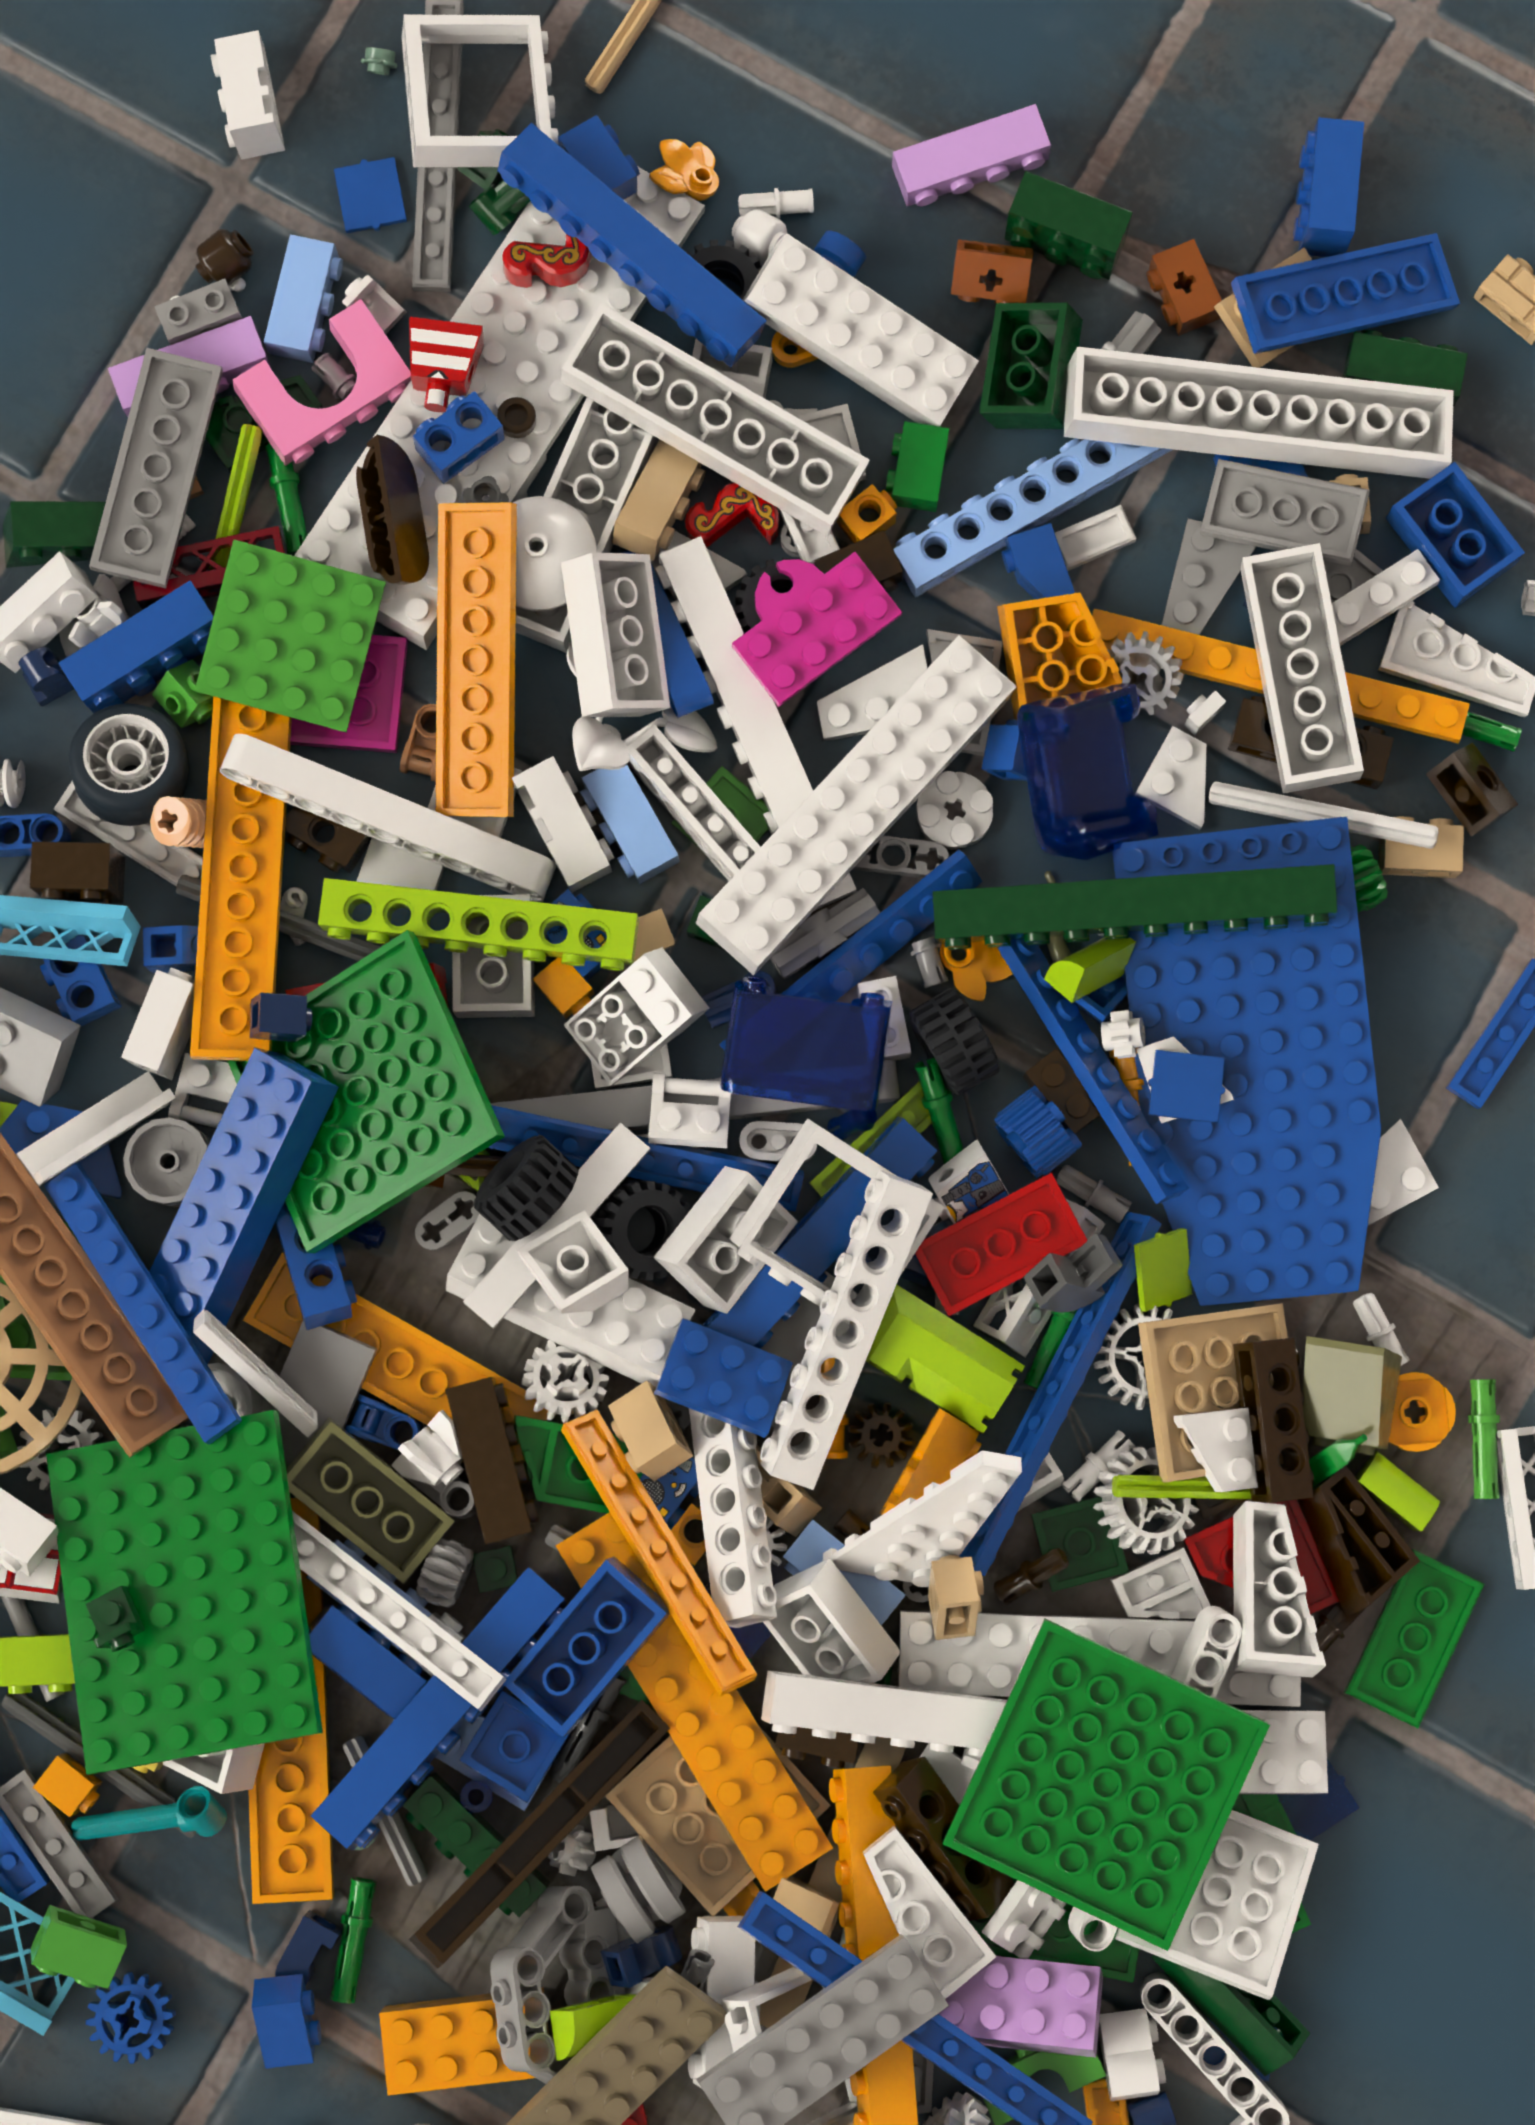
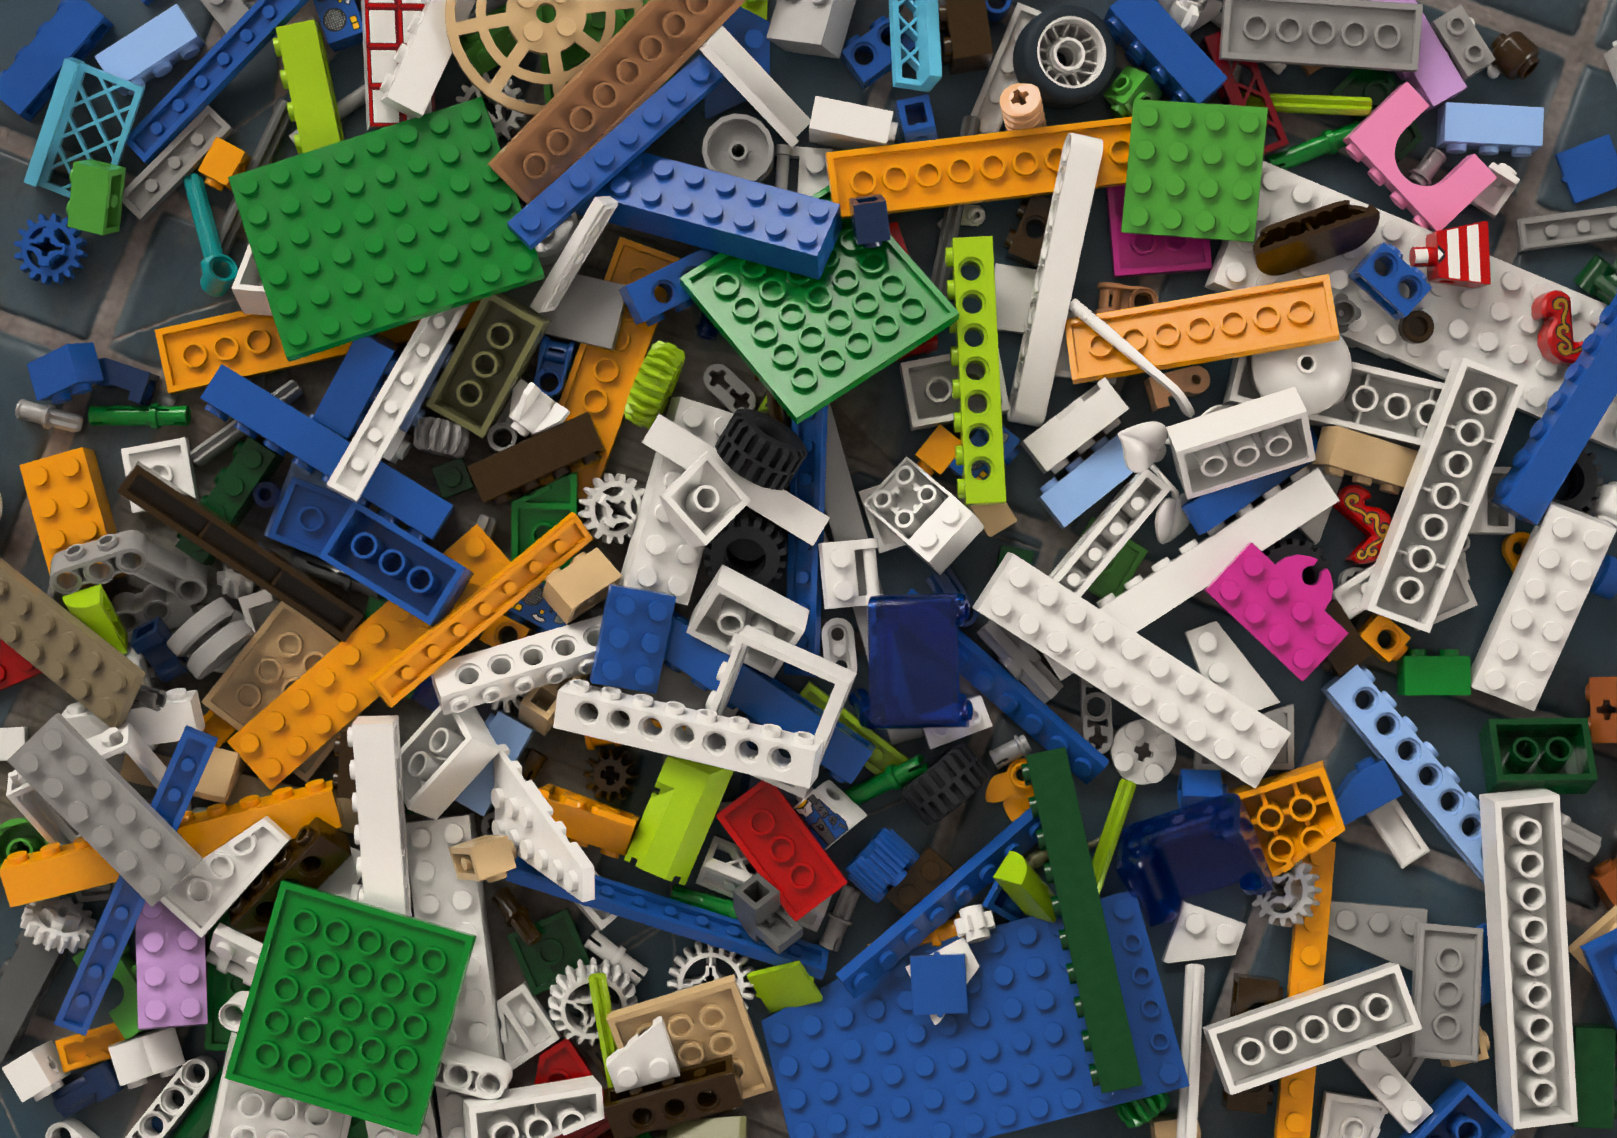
camera: 75 degrees right, 5 degrees up
(115, 1619) = (353, 177): dark green bracket -> none
(333, 2054) = (48, 416): none -> light grey axle
(407, 1913) = (168, 459): none -> white plate
(427, 1305) = (654, 384): none -> lime gear
(488, 743) = (1131, 353): none -> white piece
(532, 691) = (1190, 380): none -> light nougat leg
(1034, 856) = (1112, 830): none -> lime axle
(1203, 711) = (1262, 947): white plate -> none

